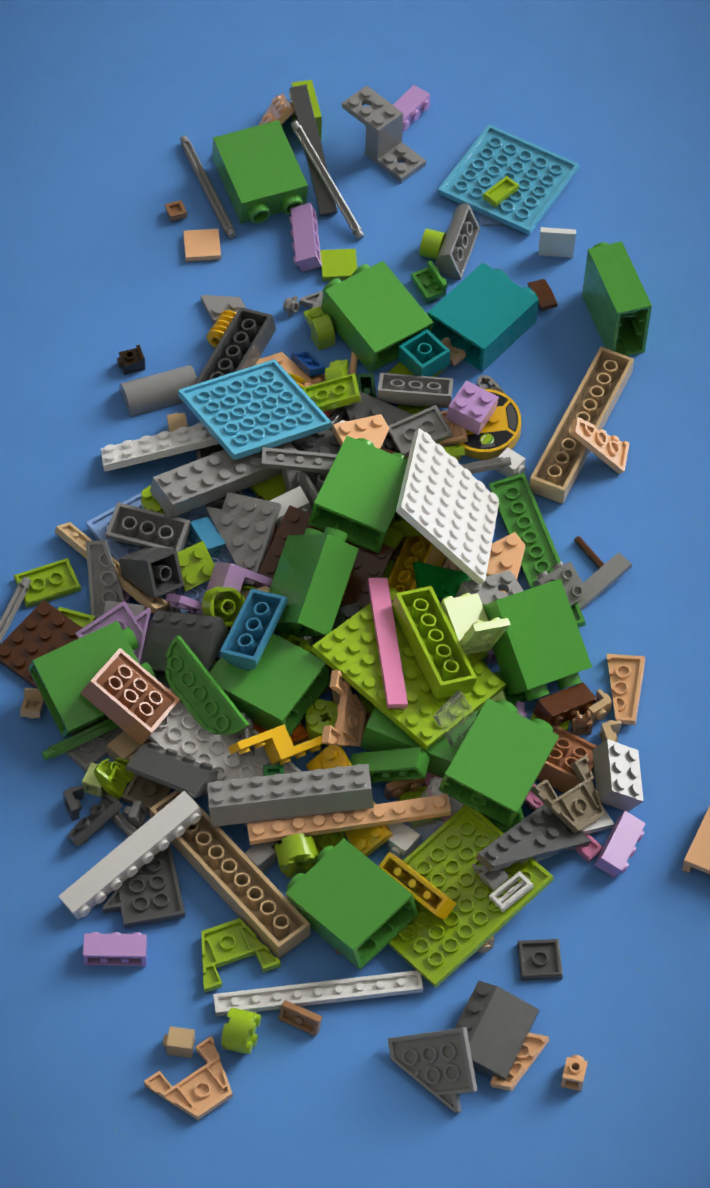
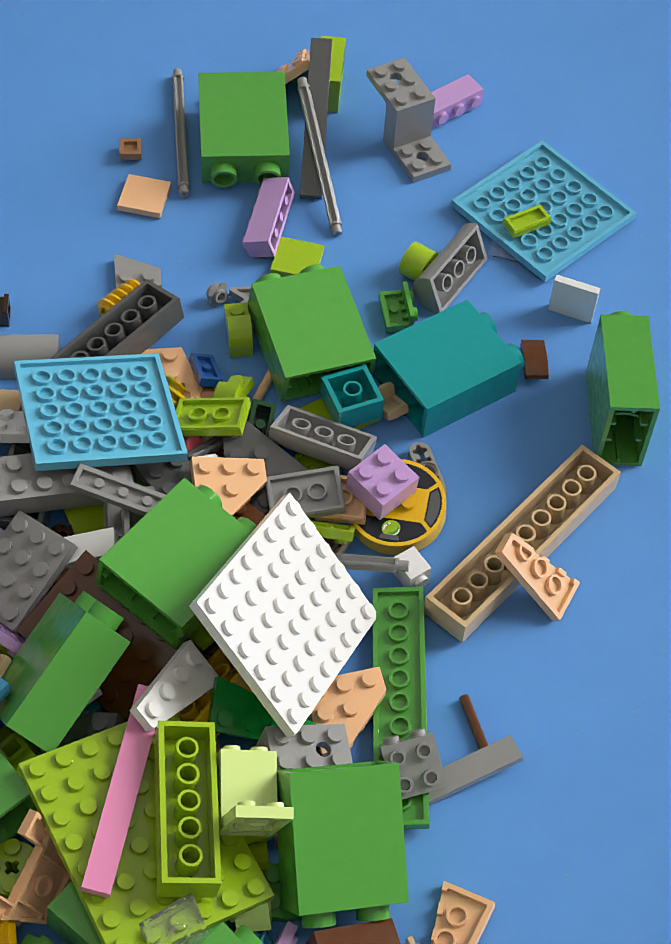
camera: 15 degrees right, 0 degrees up
(393, 573) = (175, 687): none -> white wing

